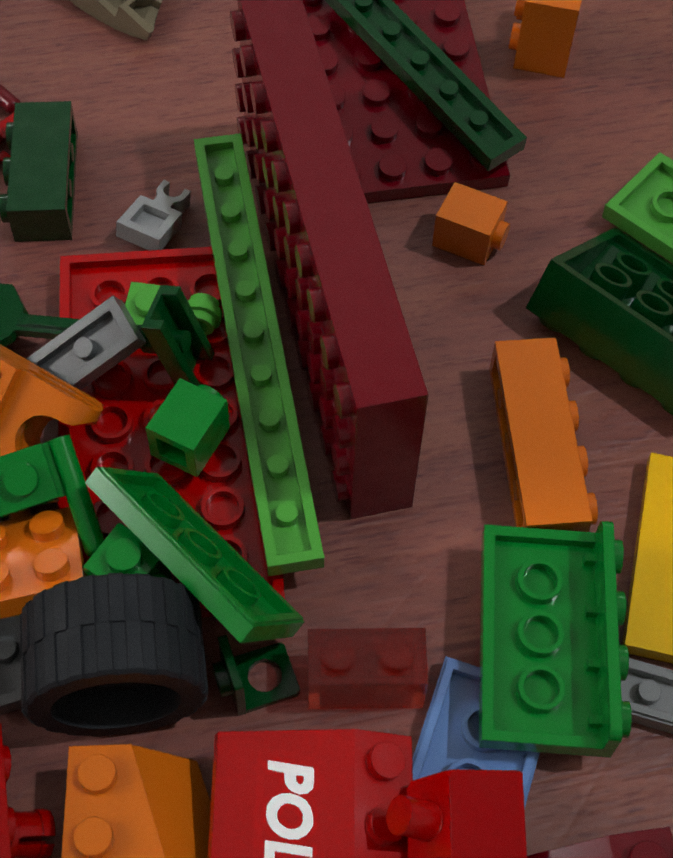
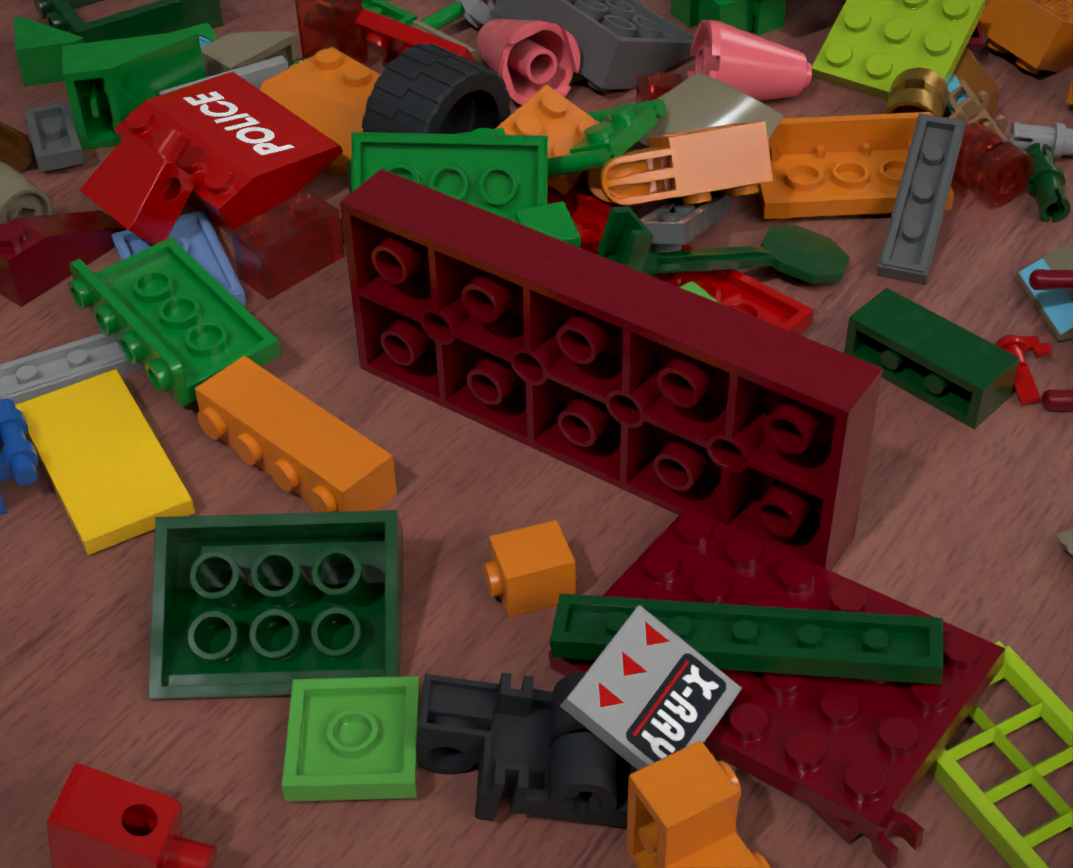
camera: 140 degrees right, 15 degrees down
(511, 63) = (650, 693): none -> tile
(572, 111) = (522, 748): none -> black plate

